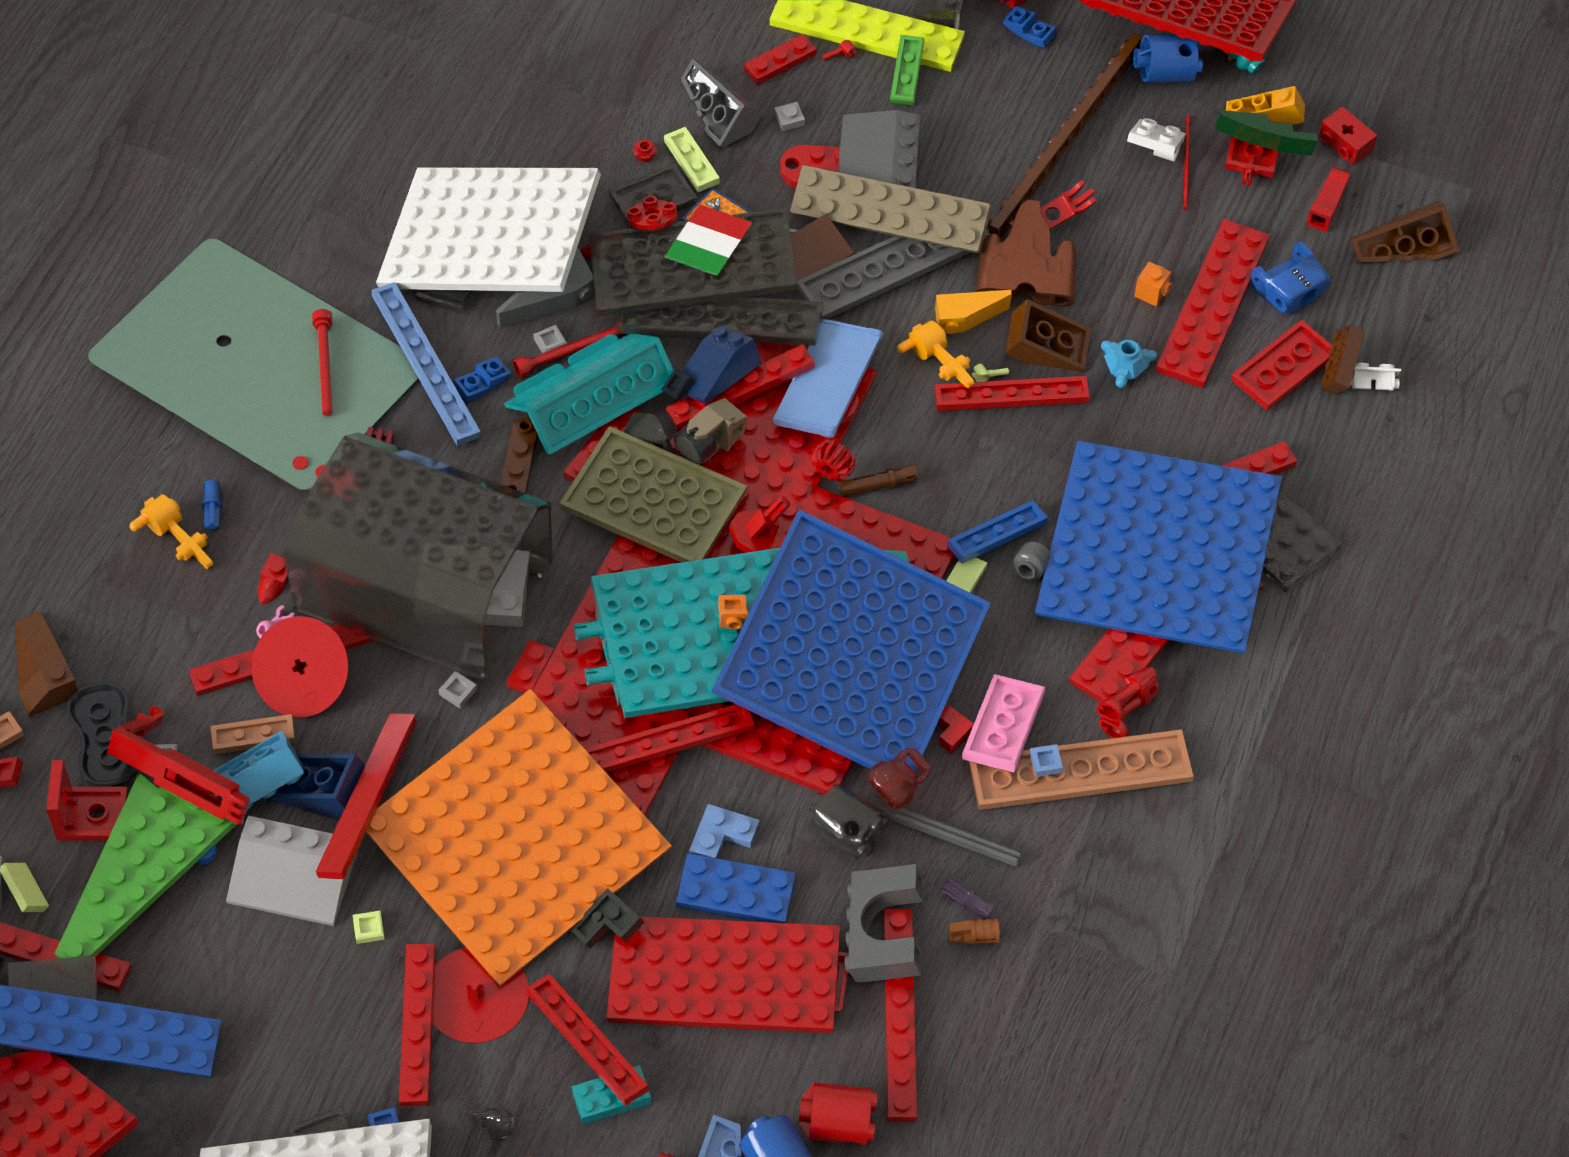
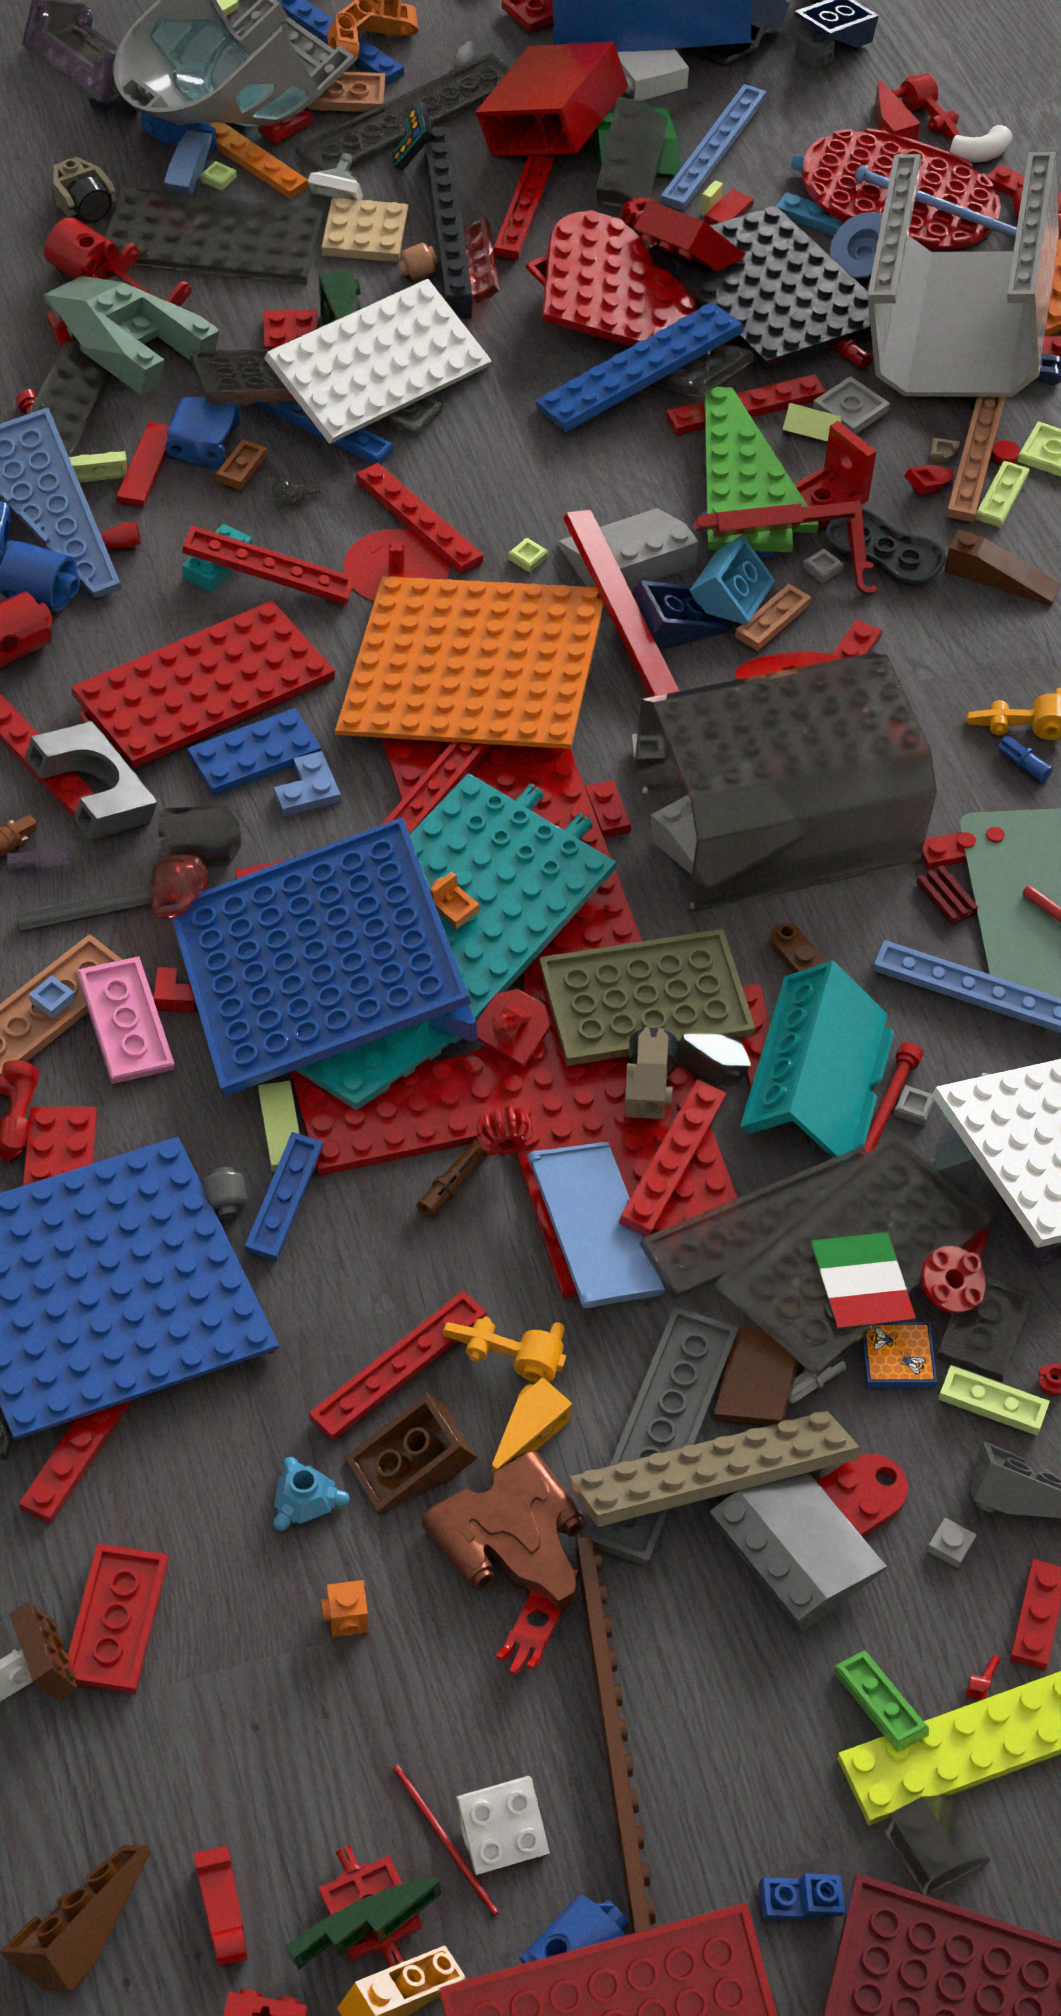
camera: 140 degrees right, 5 degrees down
(484, 379) = (933, 1021): blue slope -> none
(606, 914) = (340, 655): pearl dark grey plate -> none
(678, 385) = (732, 1108): black tile -> none
(720, 362) = (711, 1151): dark blue slope -> none
(983, 375) = (450, 1369): yellowish green hand -> none
(1212, 303) = (264, 1656): red plate -> none
(1292, 282) = (186, 1736): blue piece -> none

